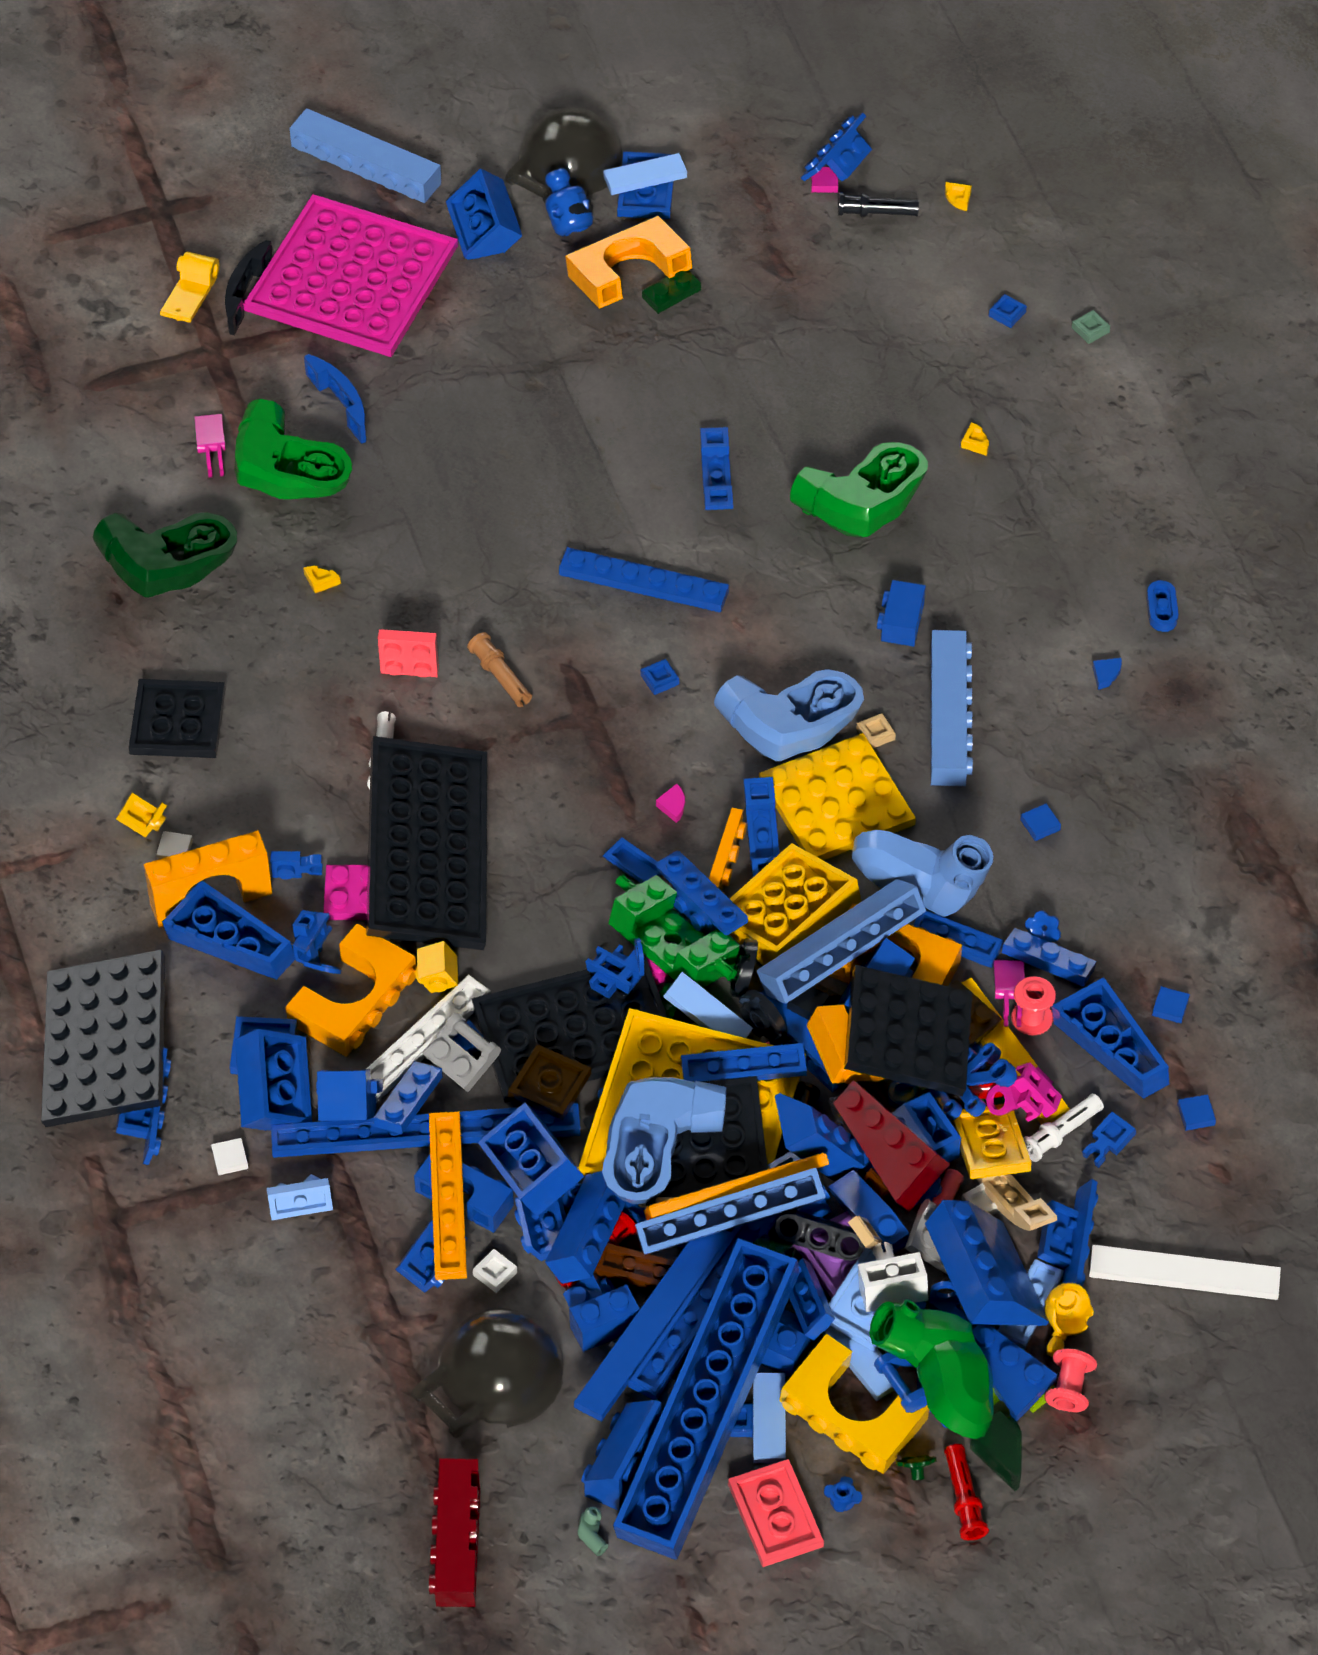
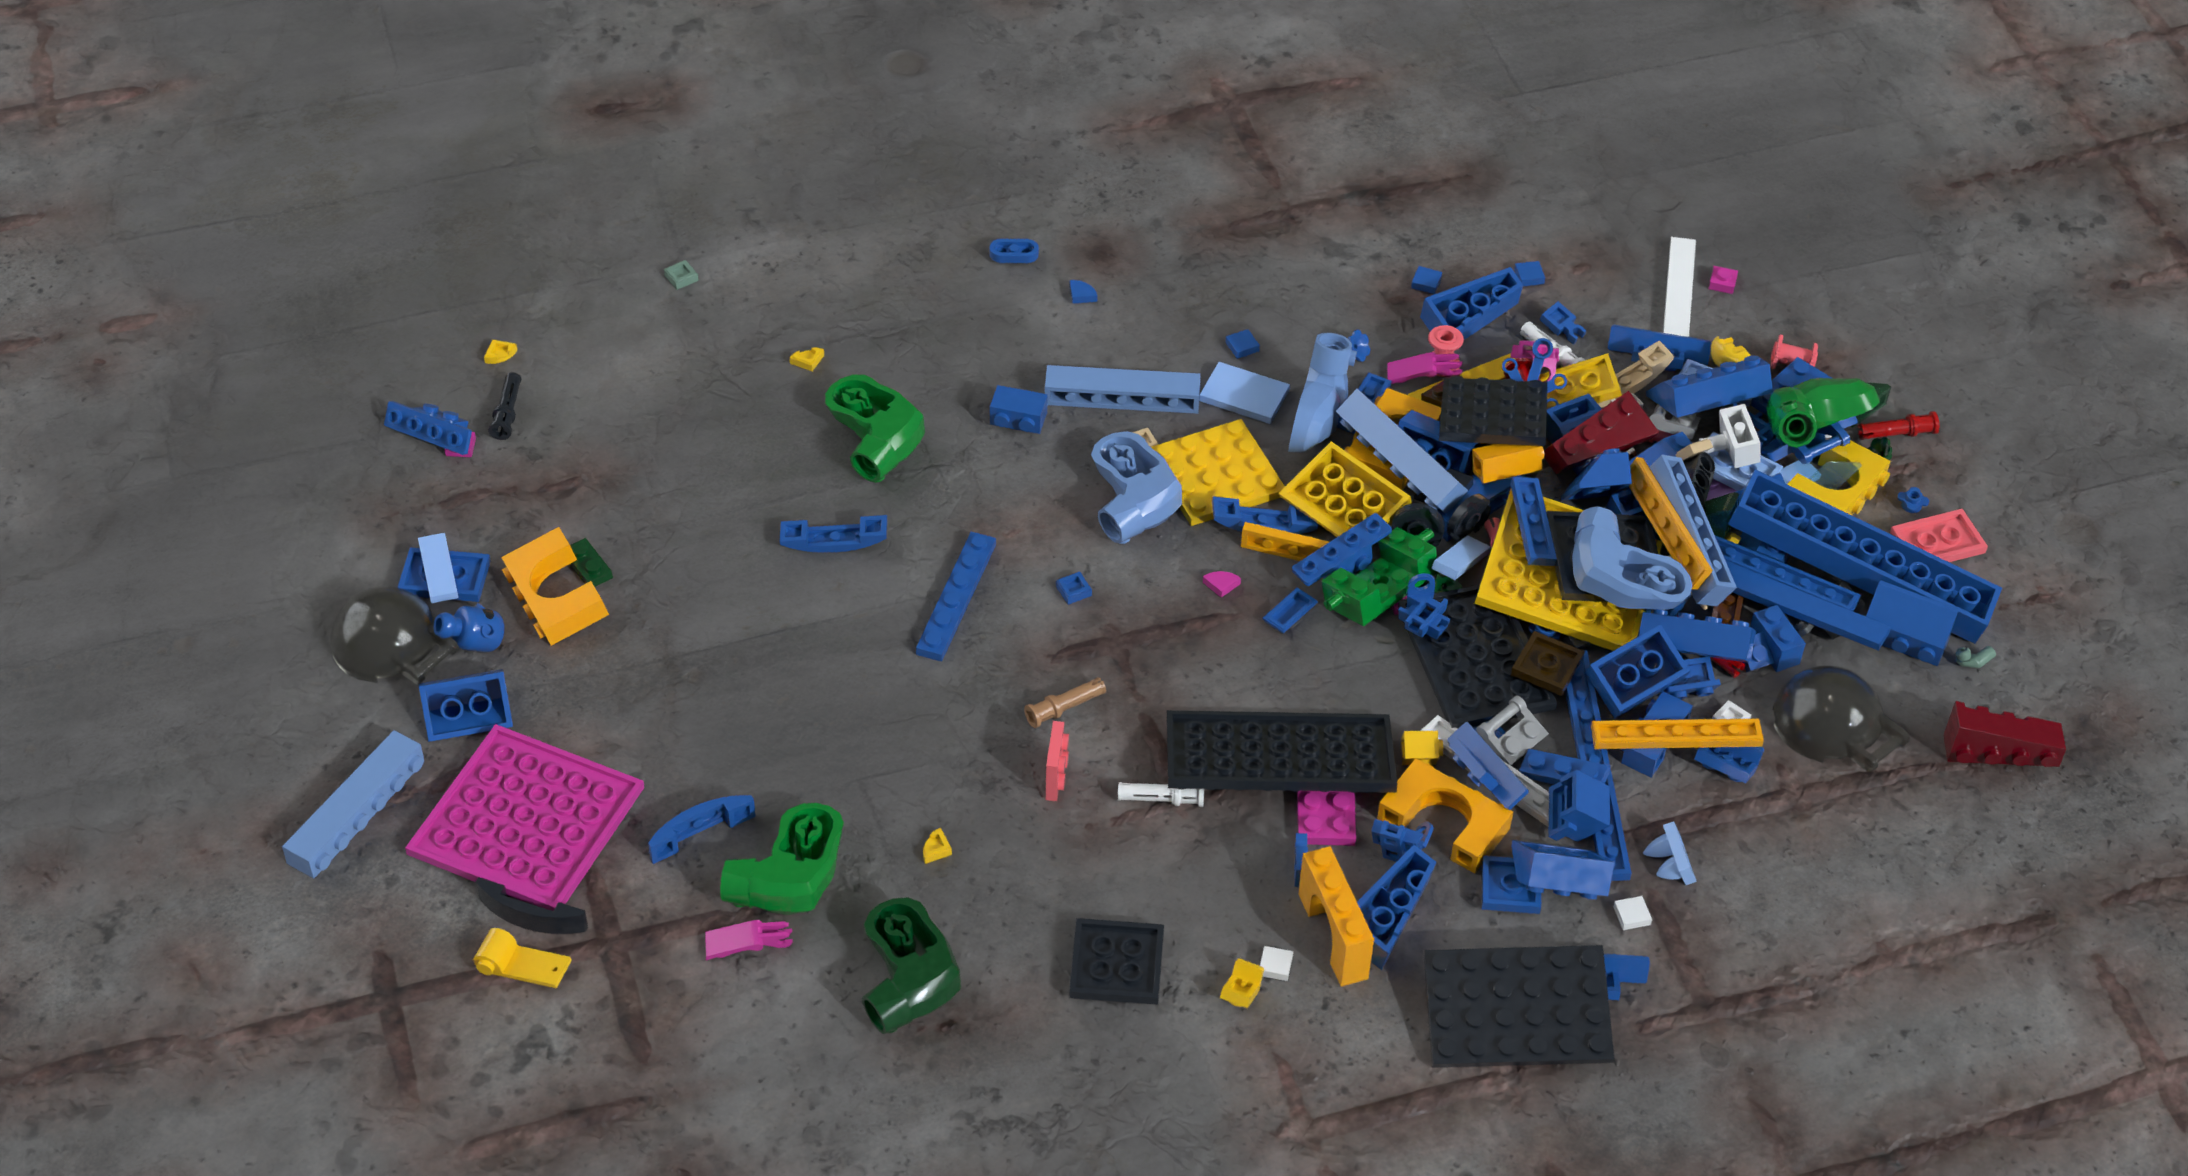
camera: 90 degrees left, 5 degrees down
(400, 1007) = (1486, 766): none -> blue bracket
(860, 1397) = (1834, 474): none -> clear light blue tile
(962, 812) = (1244, 392): none -> light blue tile
(1007, 311) = (653, 327): blue tile -> none
(1049, 957) = (1384, 346): blue plate -> none
(1214, 1324) = (1723, 279): none -> dark pink plate

